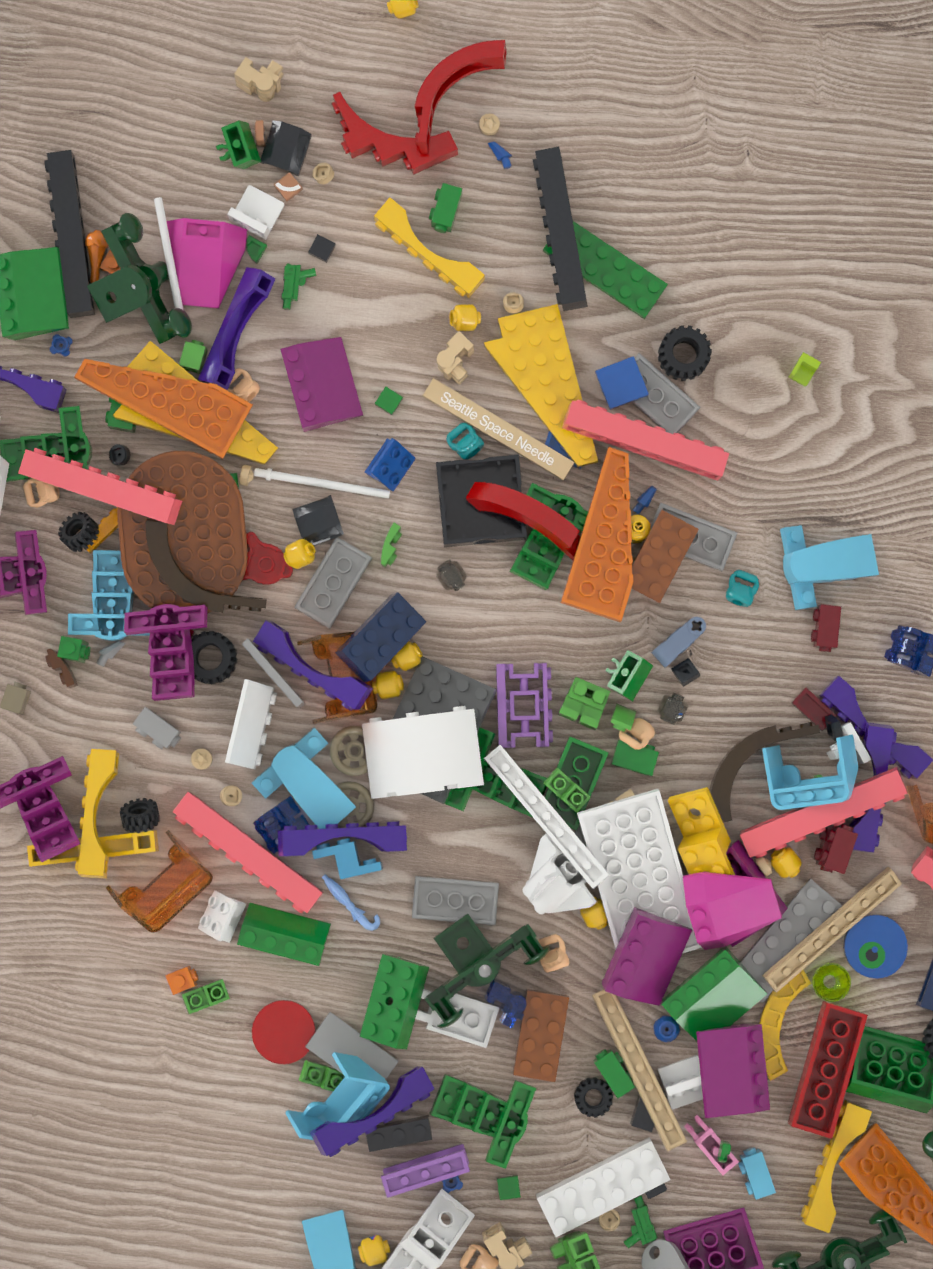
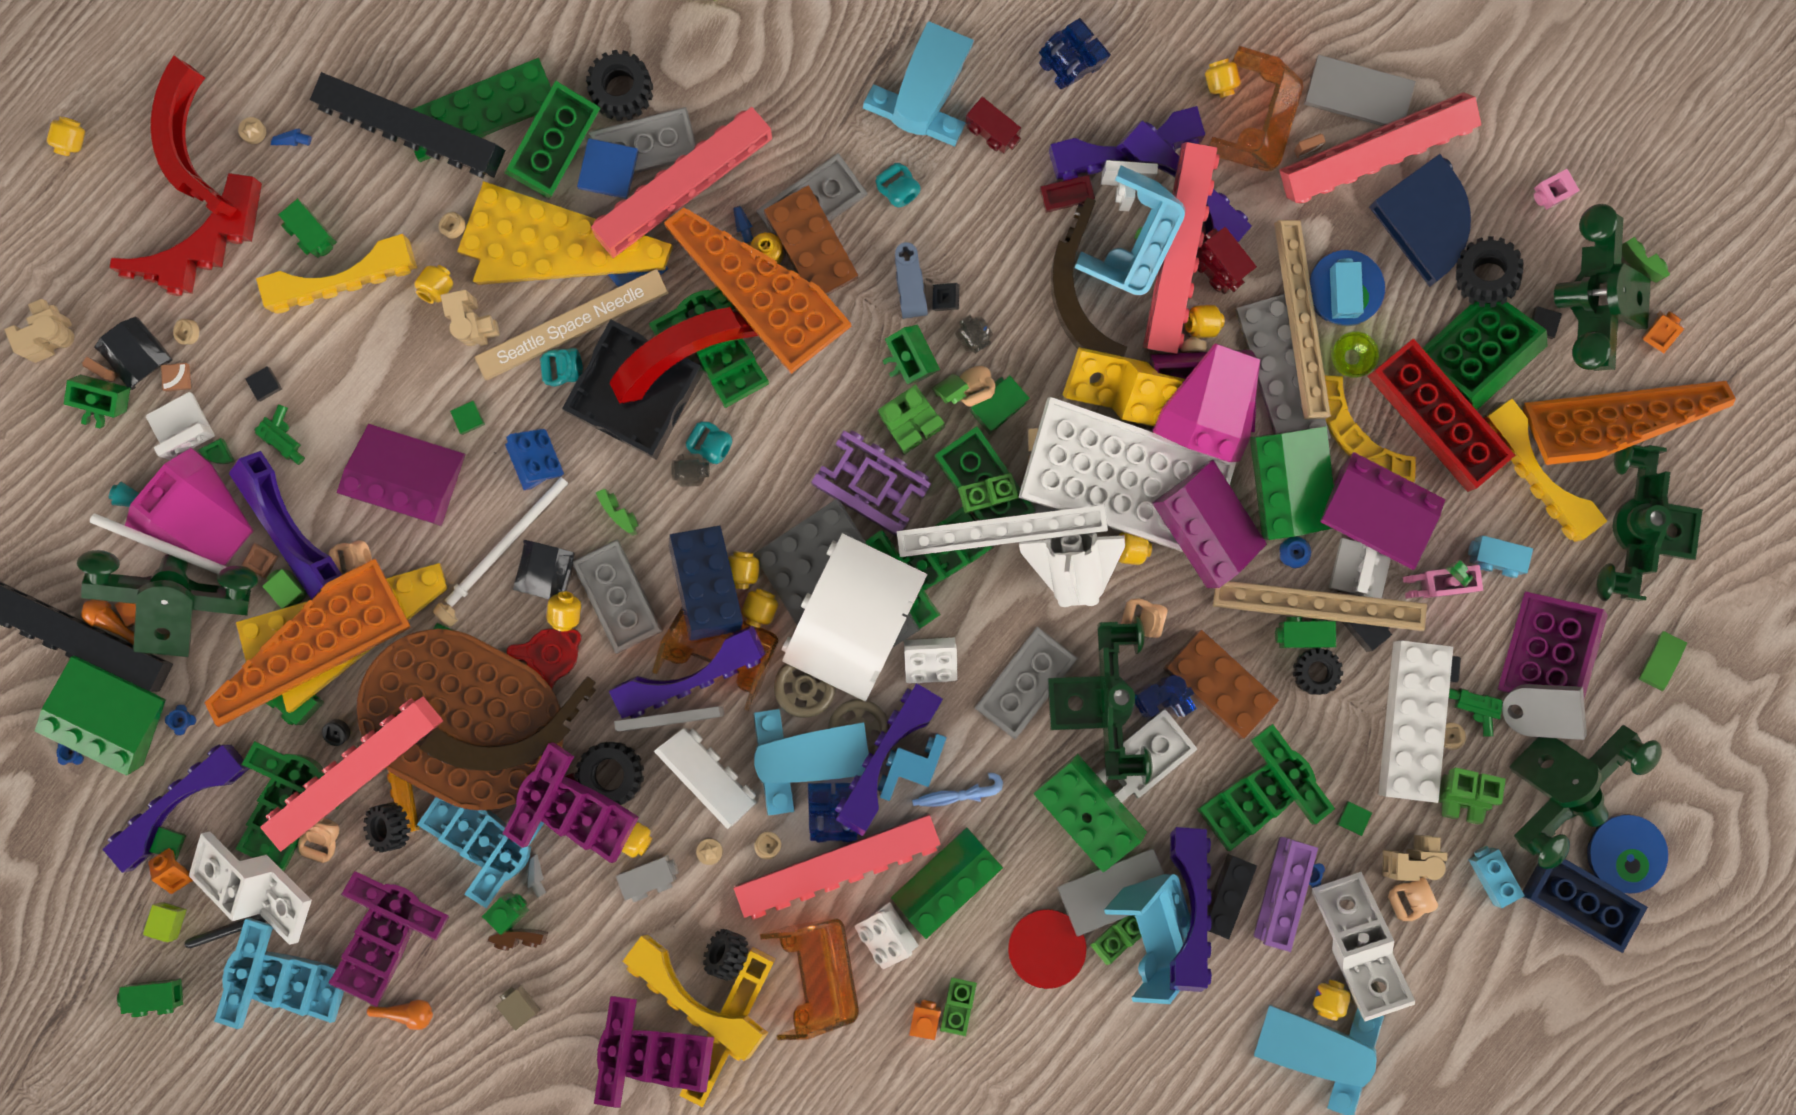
camera: 50 degrees left, 0 degrees up
(177, 706) = (638, 841): none -> yellow head
(186, 207) = (122, 495): none -> teal cone
(201, 326) = (260, 560): none -> nougat tile
(428, 824) = (930, 660): none -> white bracket
(479, 581) = (715, 444): none -> teal piece
(615, 333) = (552, 140): none -> green brick
(833, 727) = (1099, 184): black tile -> none
(872, 946) = (1346, 289): none -> medium azure brick

